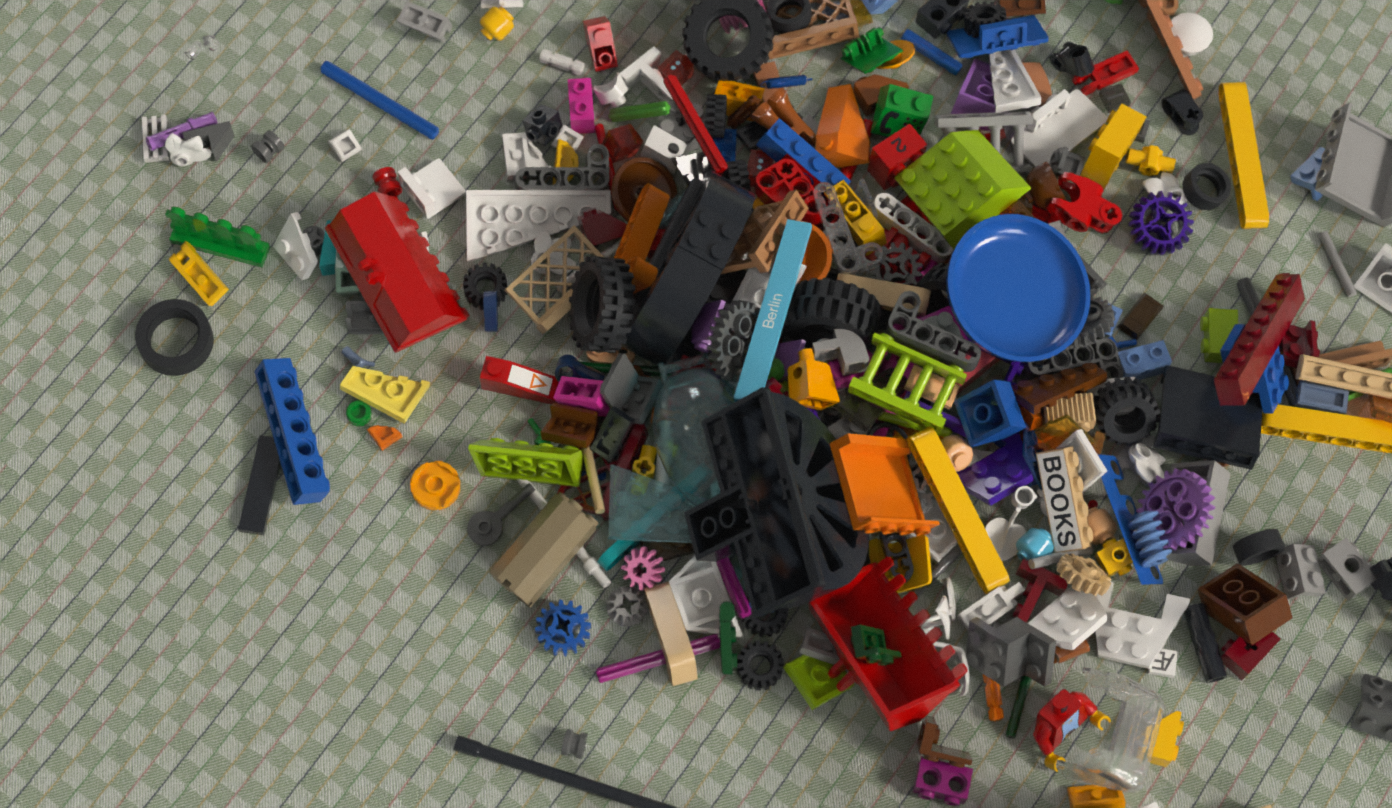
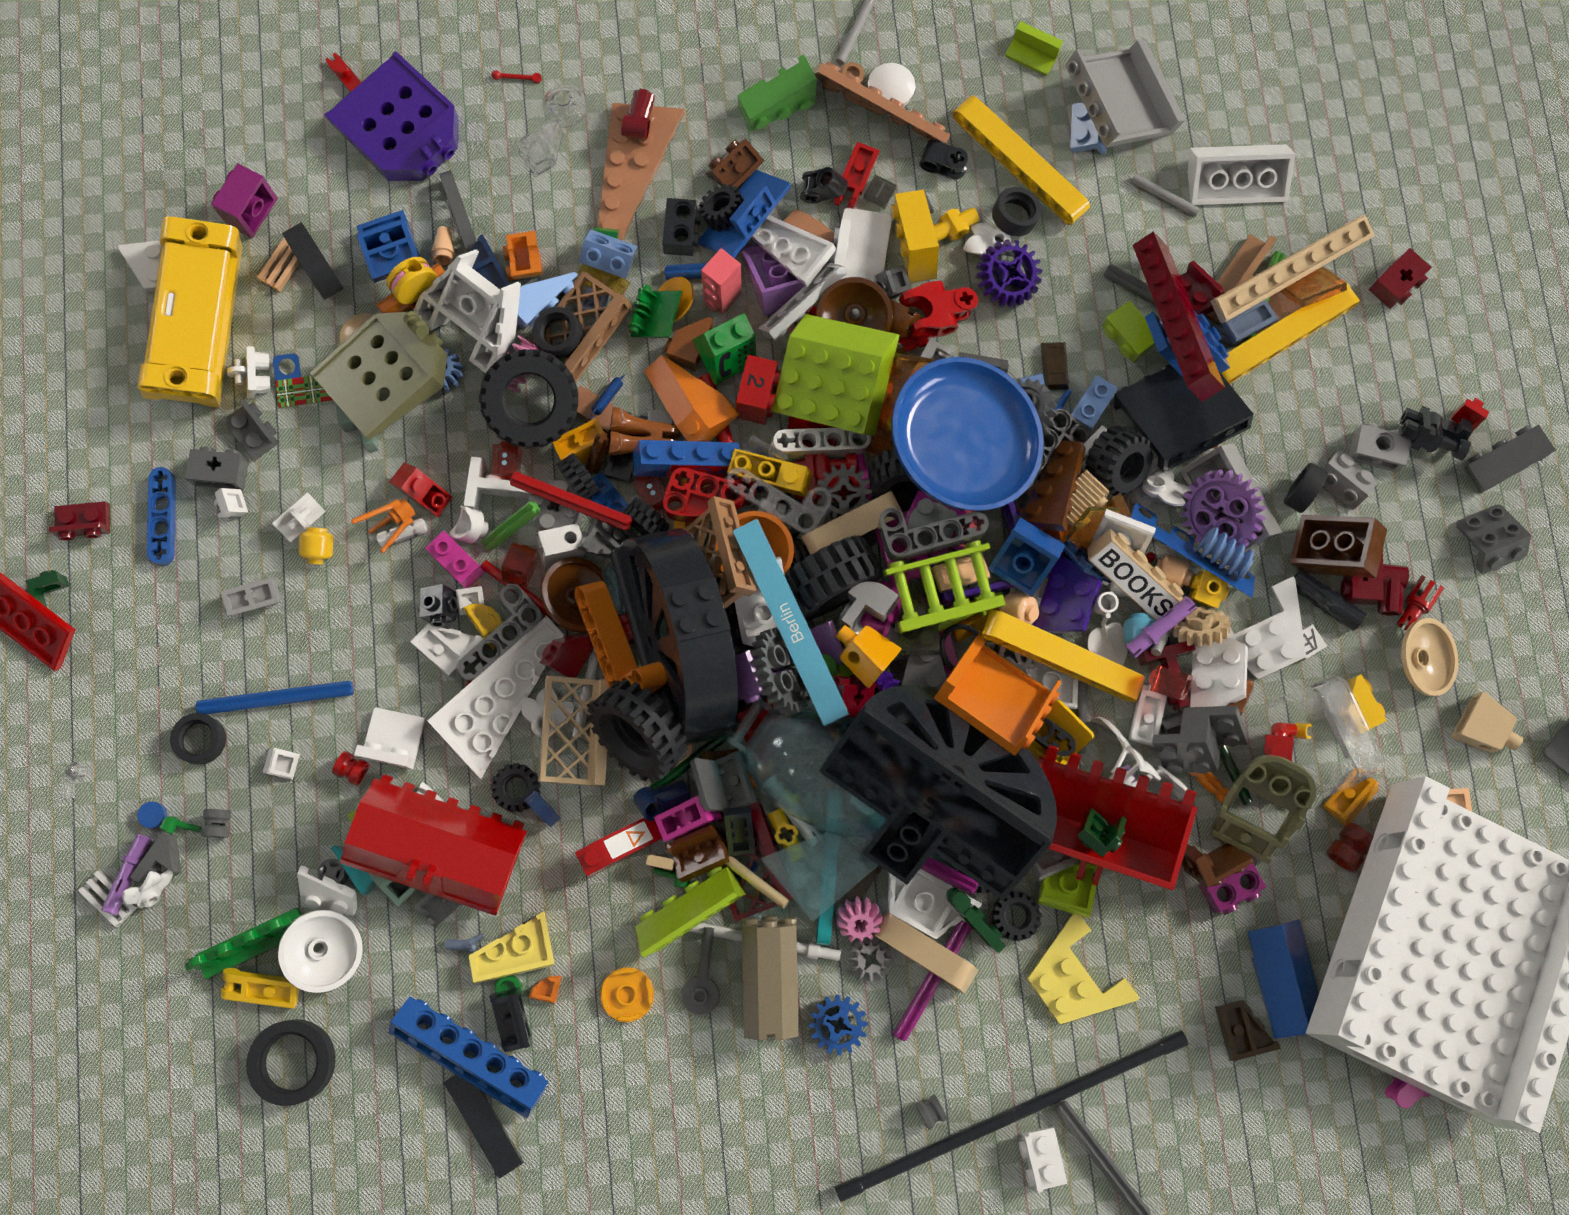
camera: 40 degrees left, 10 degrees up
(231, 109) = (151, 814): none -> blue tile
(239, 124) = (170, 823): none -> green hand
(240, 276) = (329, 966): none -> white dish
(302, 69) = (180, 729): none -> black tyre
(343, 431) = (511, 1019): none -> black hinge
(538, 414) = (660, 862): none -> tan tile
(571, 46) = (400, 512): none -> orange plant
(753, 746) = (1065, 983): none -> light yellow wing
(936, 64) = (721, 281): none -> coral brick
(1022, 140) = (857, 294): none -> reddish brown dish
(1023, 593) = (1170, 682): none -> clear red brick
(1042, 728) = (1278, 782): none -> olive slope
(1050, 547) = (1160, 627): none -> medium lavender pin
(1259, 745) = (1429, 657): none -> tan dish
(1268, 672) = (1394, 582): none -> dark red piece
(1279, 704) = (1418, 605): none -> red arm
(1324, 87) = (1034, 48): none -> lime panel

